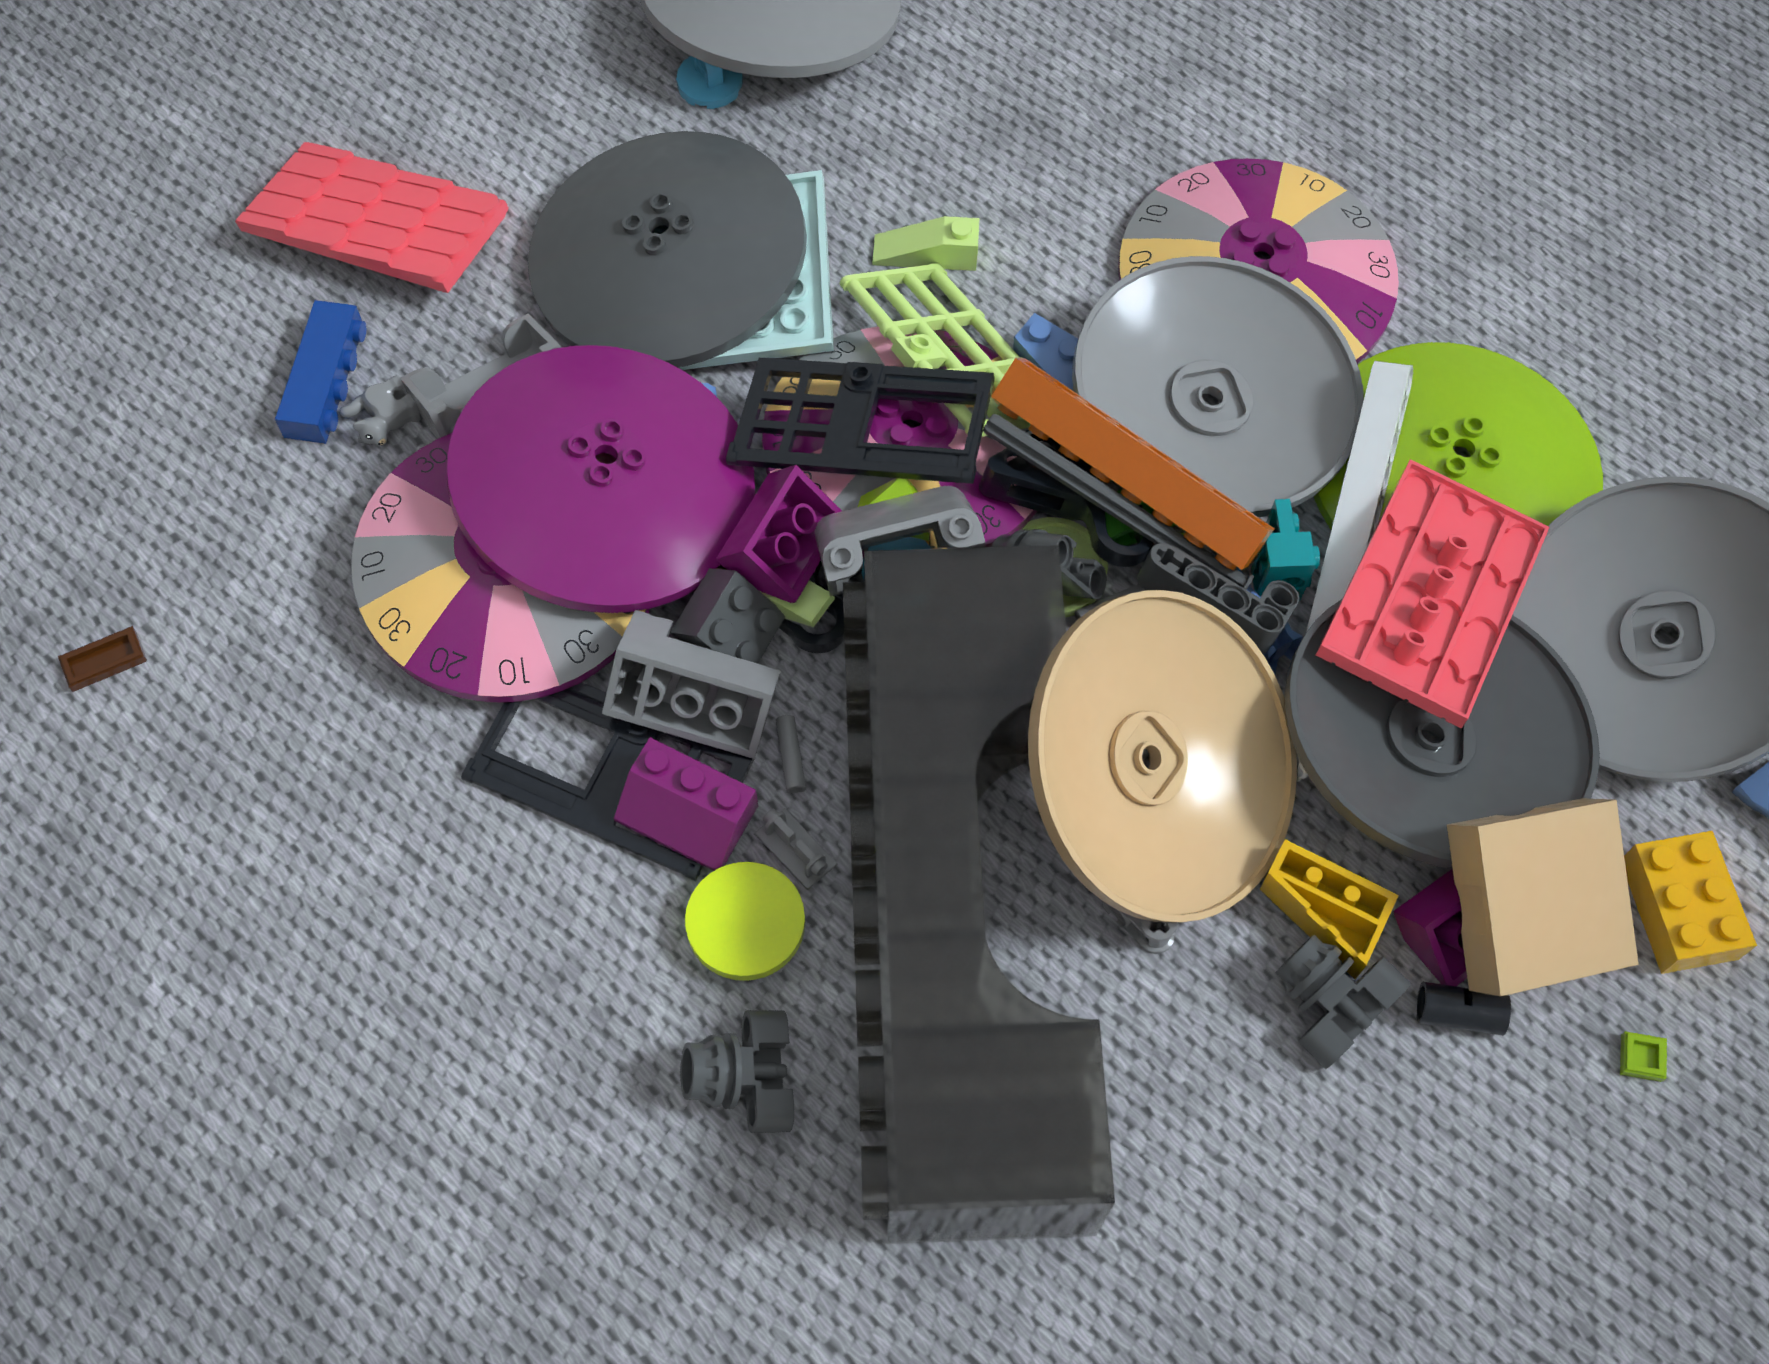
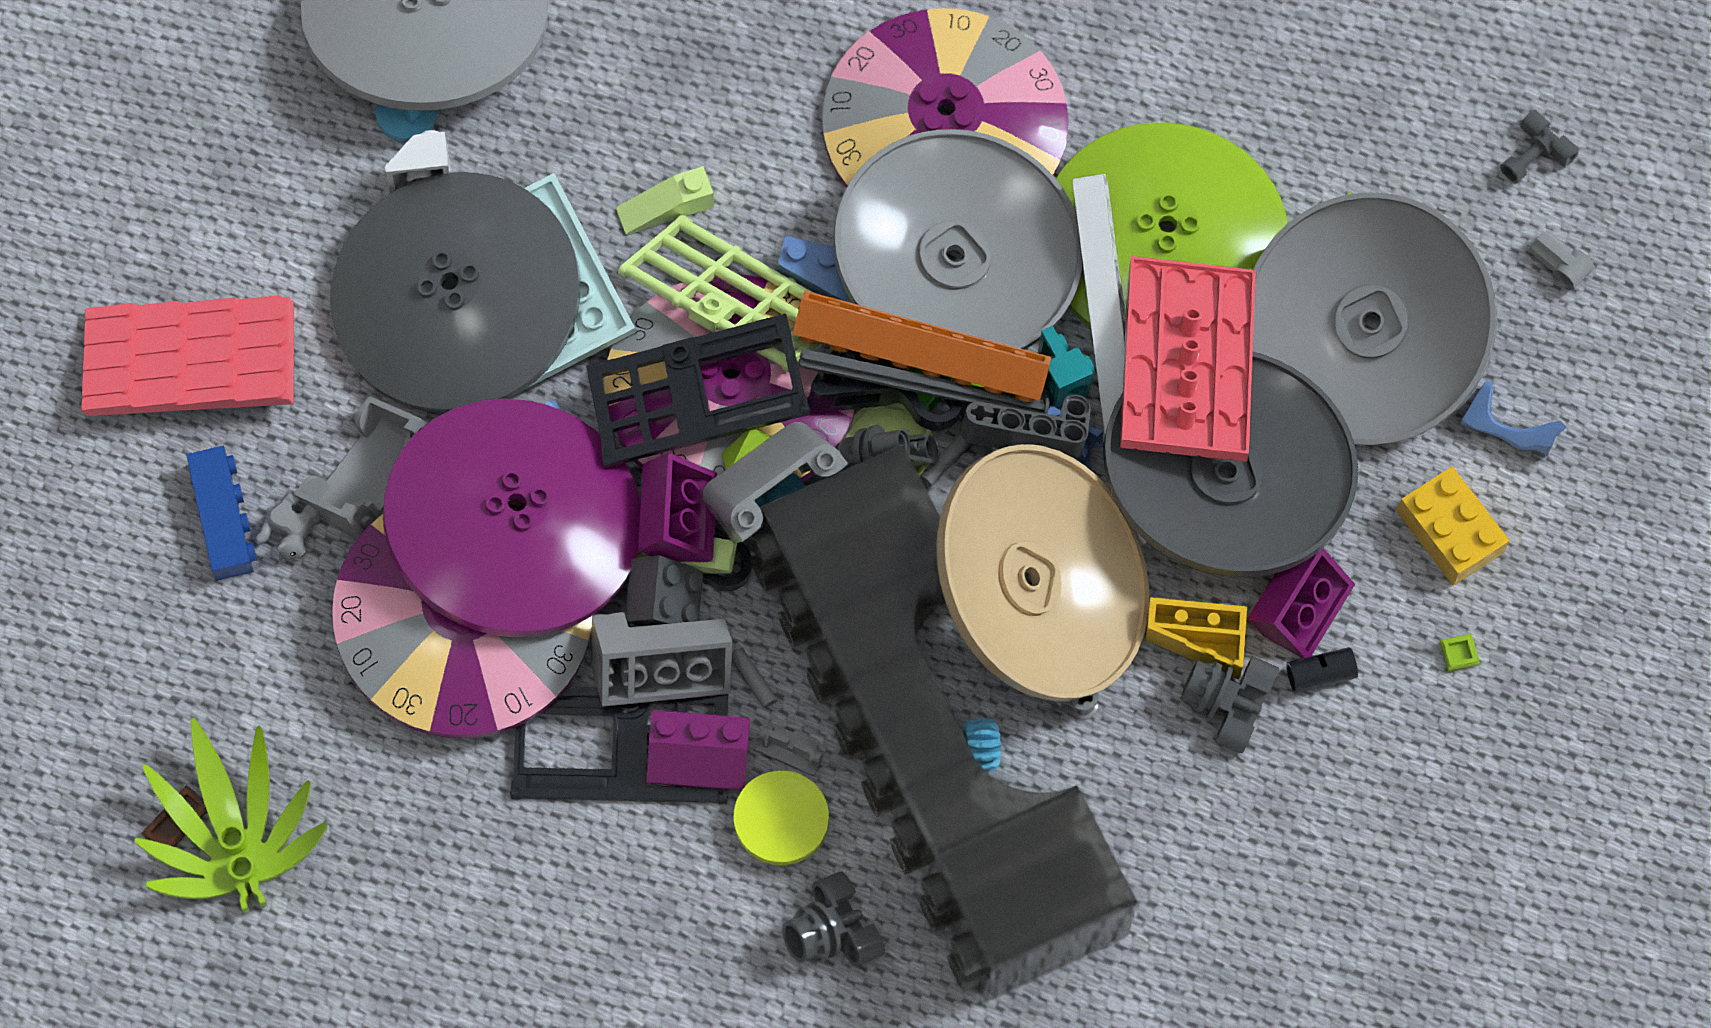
camera: 25 degrees left, 5 degrees up
(141, 714) = (238, 853): none -> lime plant
(692, 109) = (418, 159): none -> white slope
(1014, 931) = (984, 742): none -> medium azure gear
(1543, 896) = (1348, 566): tan tile -> none

